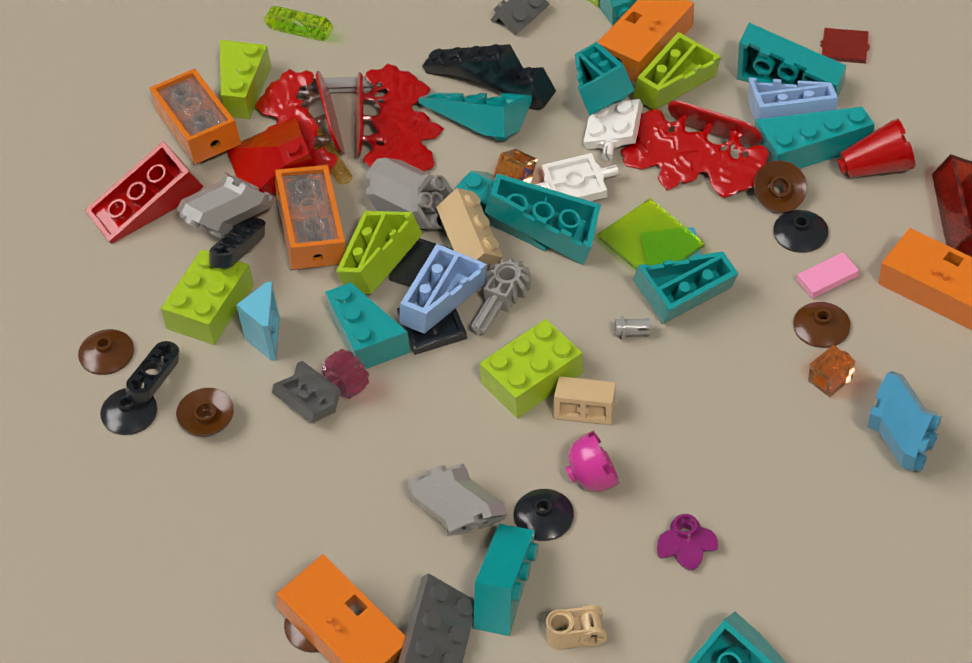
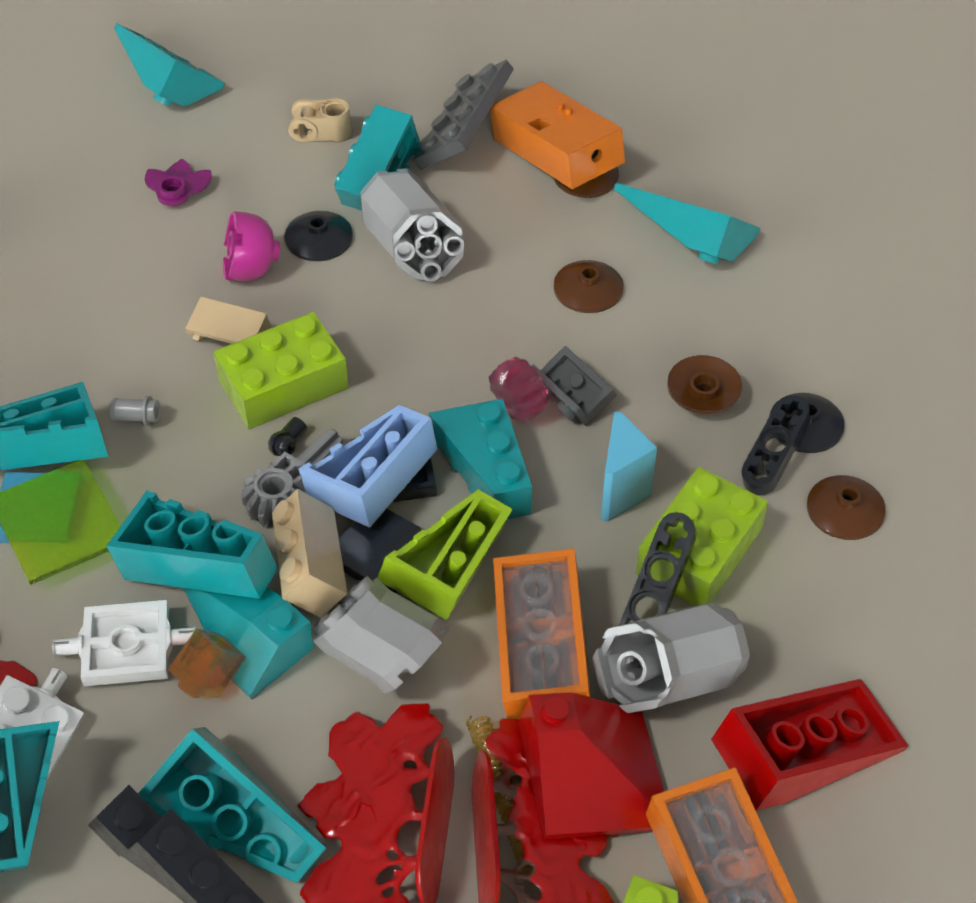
camera: 175 degrees left, 0 degrees up
(213, 564) = (697, 228): none -> teal wedge
(306, 511) = (588, 286): none -> reddish brown dish
(516, 324) = (286, 438): none -> black arm

